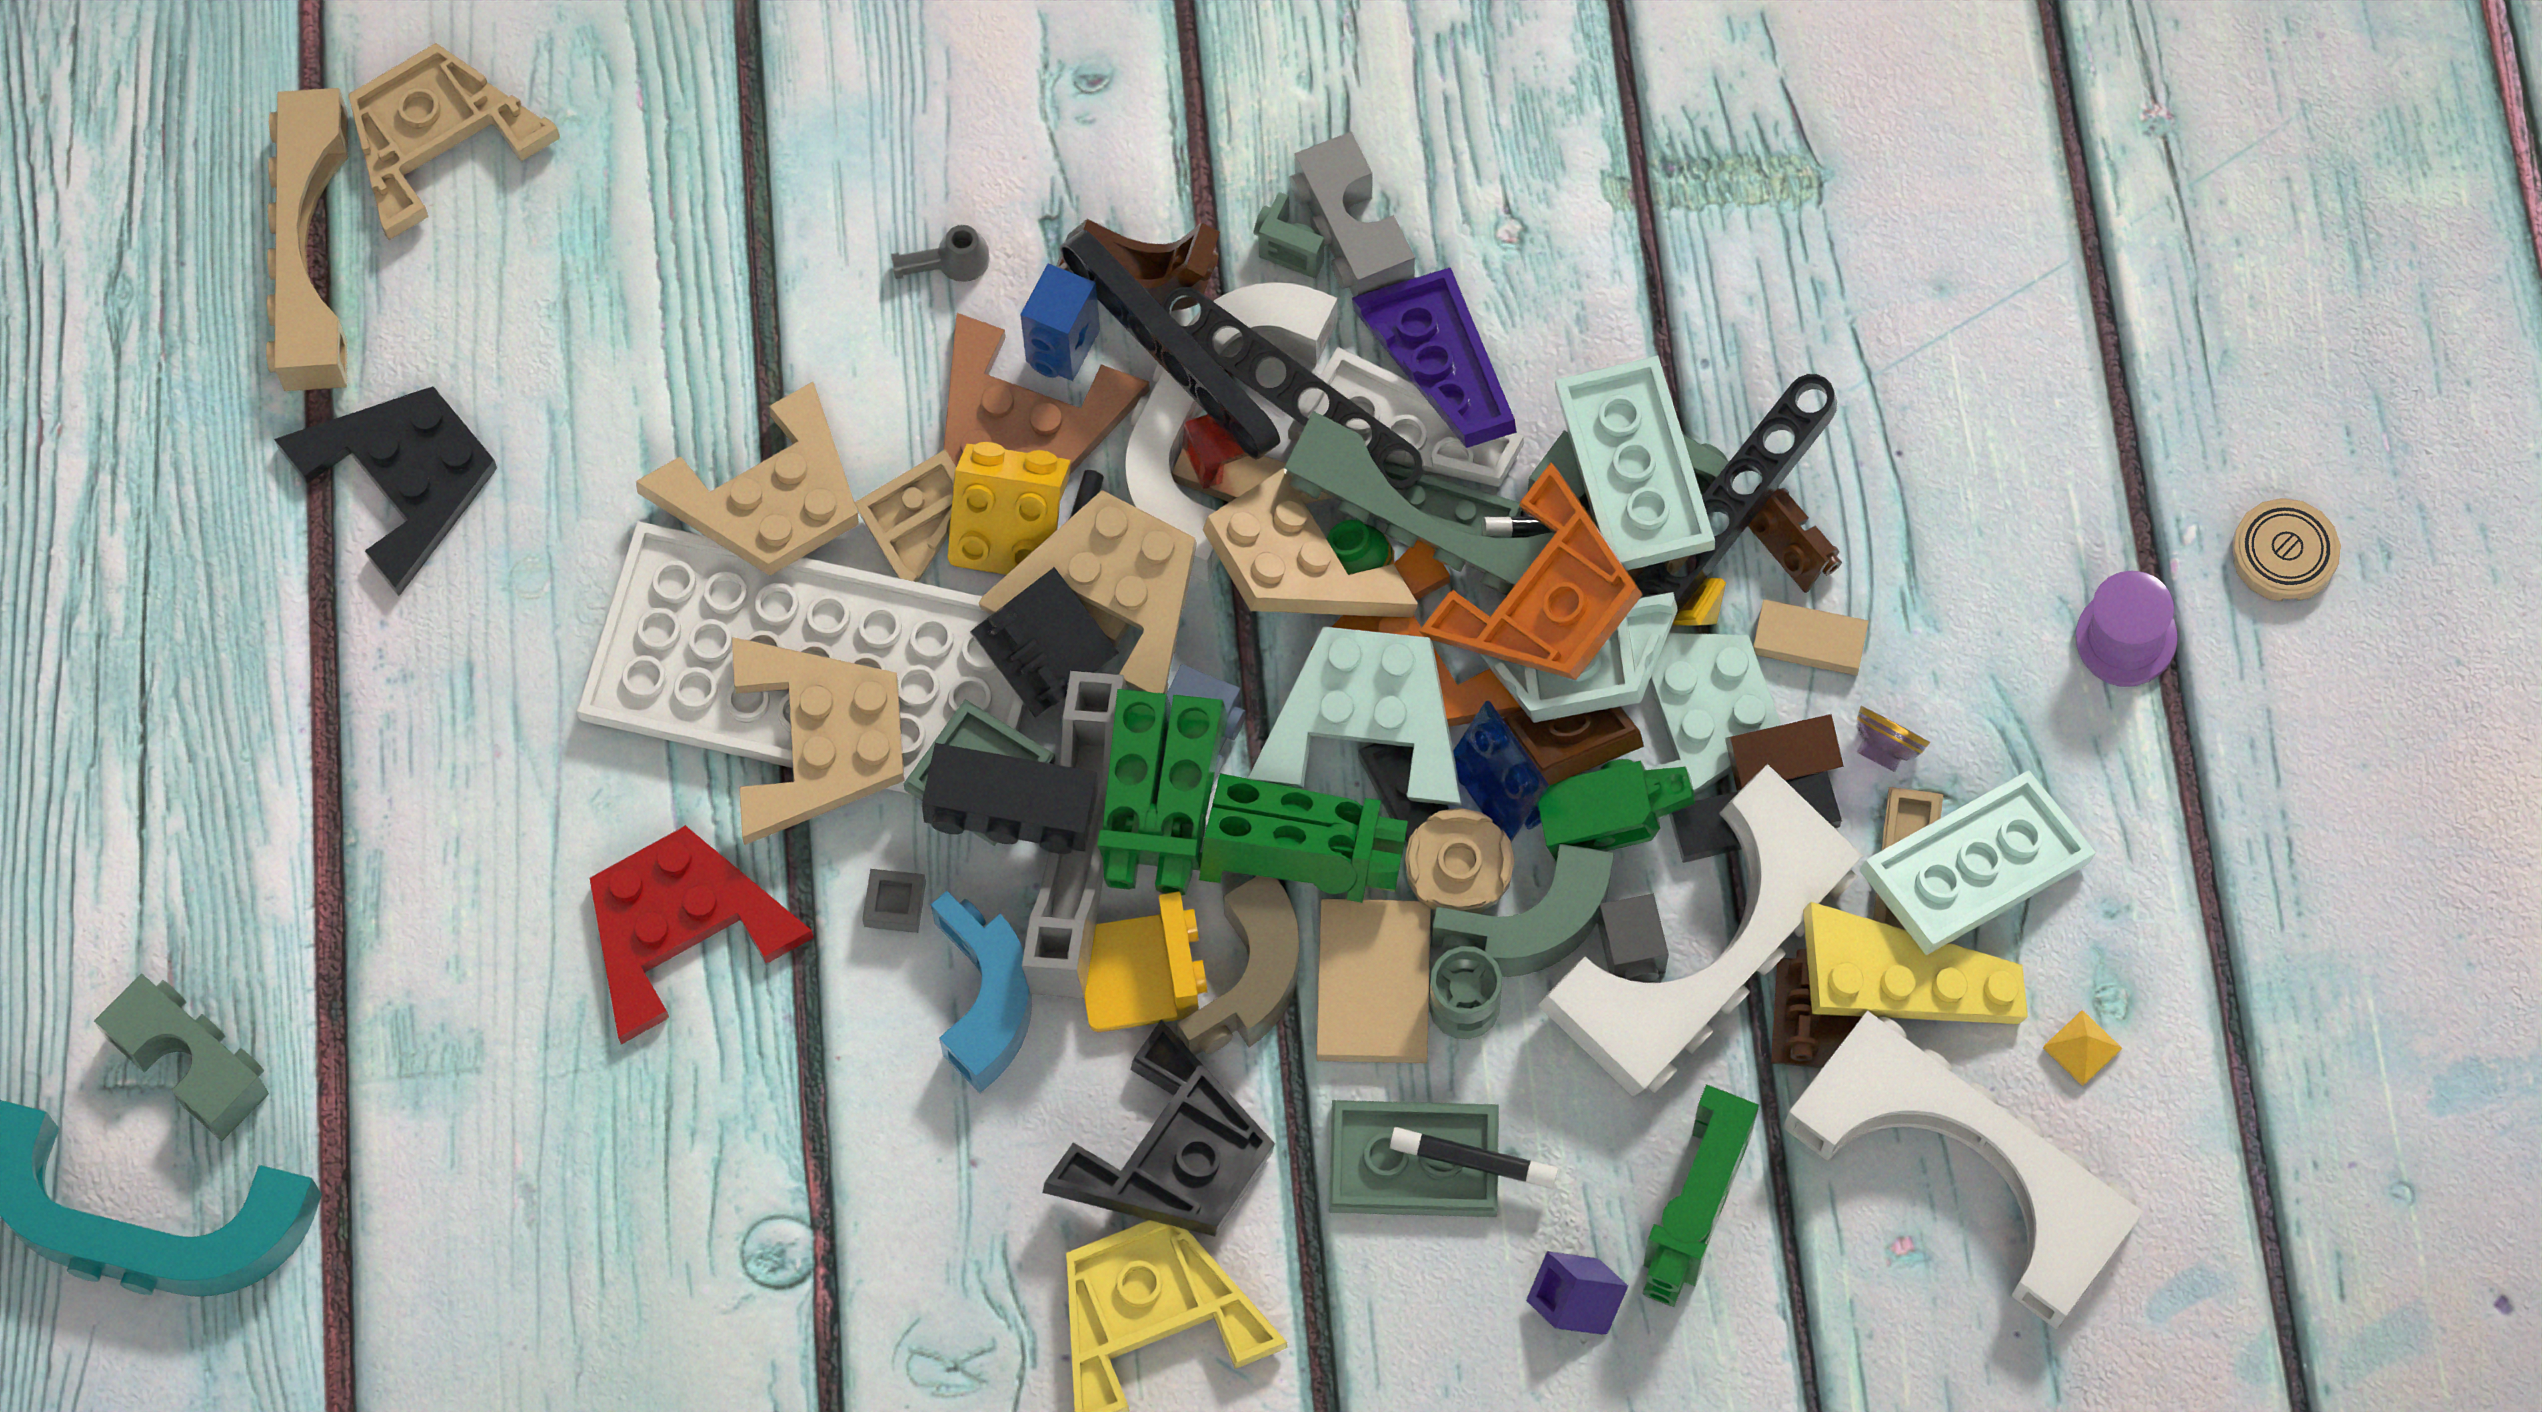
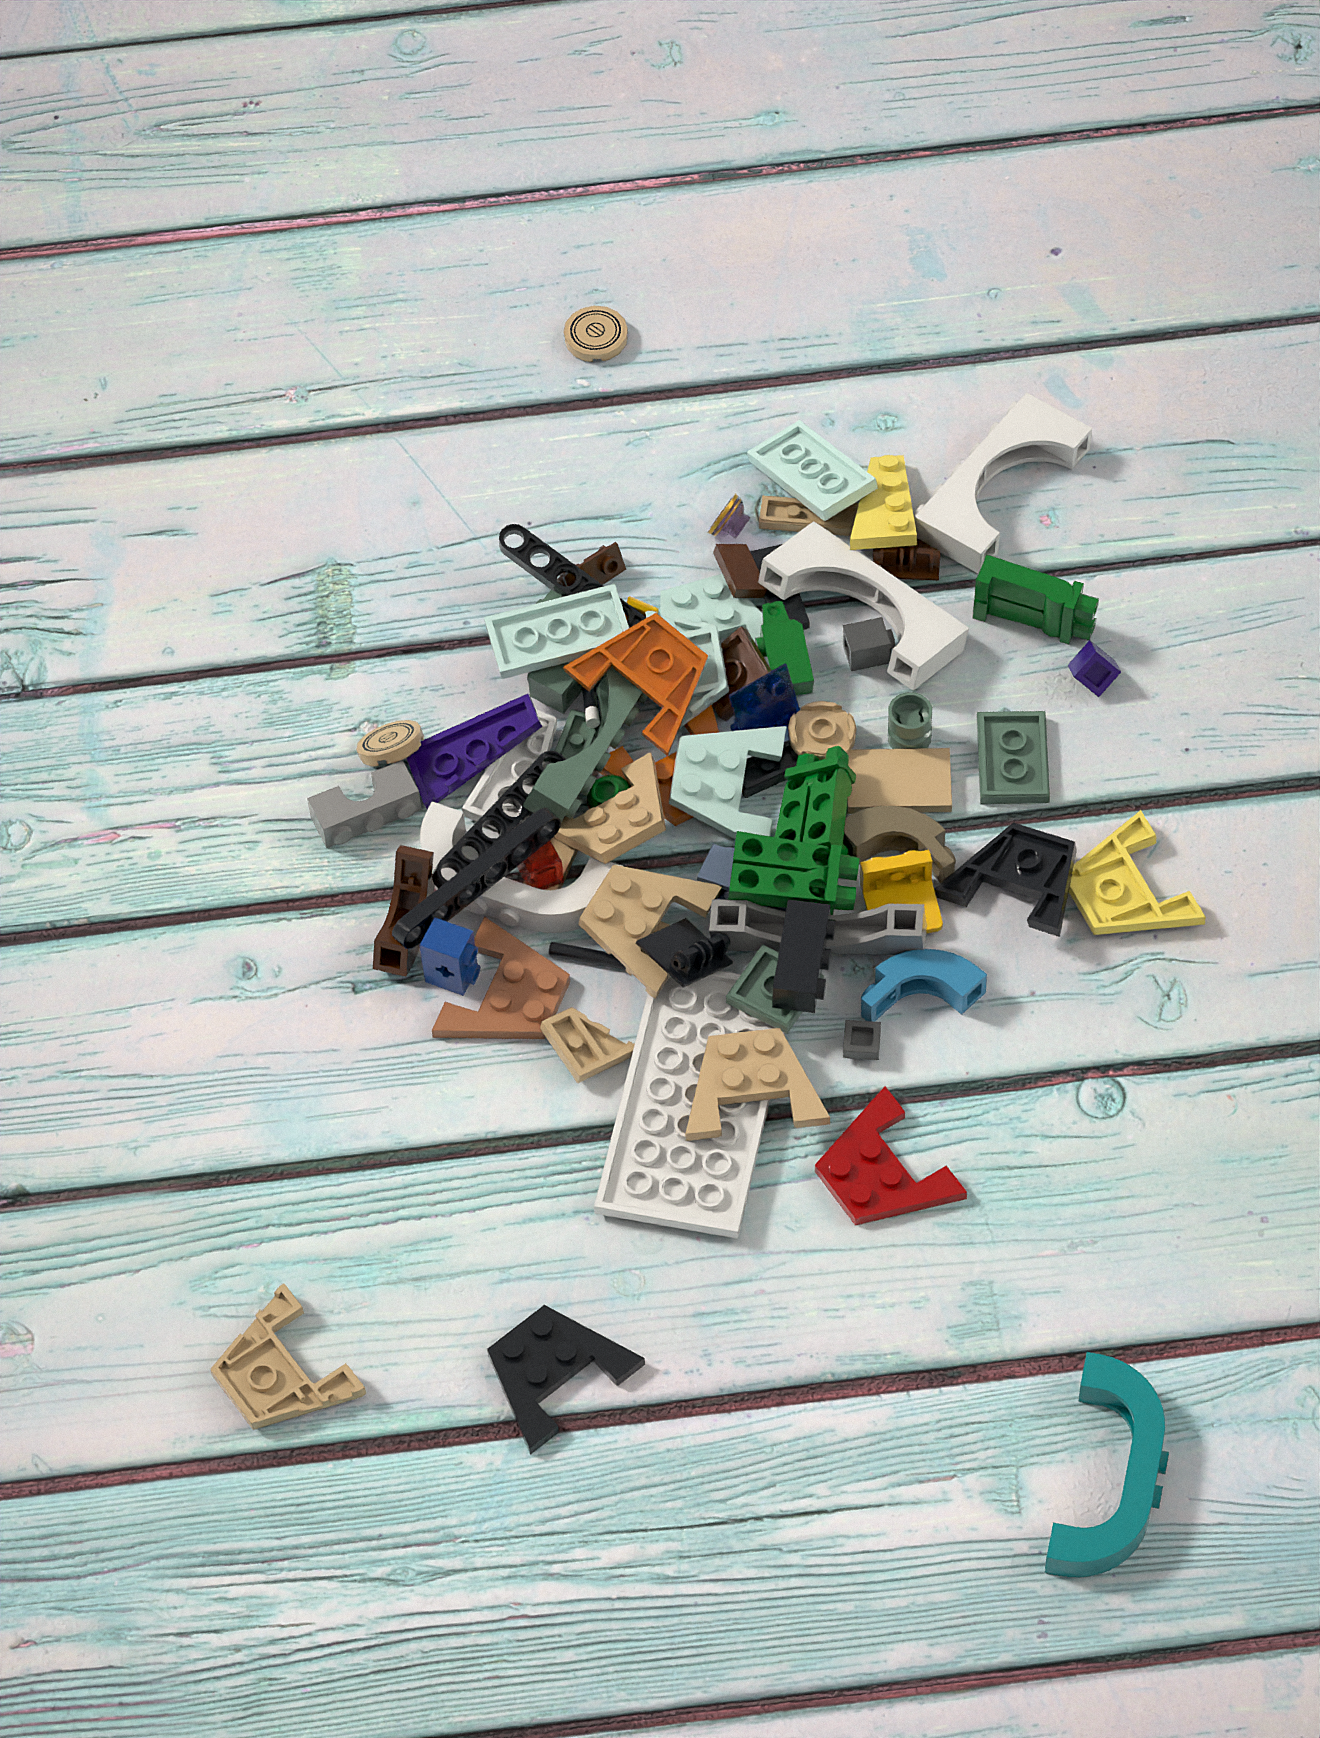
camera: 90 degrees left, 10 degrees down
(150, 1023) = (1017, 1428): sand green arch -> none
(310, 149) = (446, 1432): tan arch -> none
(775, 507) = (580, 1118): tan wing -> none
(955, 263) = (385, 1041): dark grey bar -> none
(1003, 505) = (583, 978): yellow bracket -> none
(1288, 244) = (382, 842): sand green bracket -> none
(1457, 246) = (390, 742): none -> tan tile
(1474, 1158) = (1015, 718): black bar -> none
(1545, 931) = (858, 681): sand green arch -> none
(1810, 637) = (658, 562): tan tile -> none
(2082, 1048) = (918, 434): yellow slope -> none
(2128, 629) = (653, 402): medium lavender piece -> none

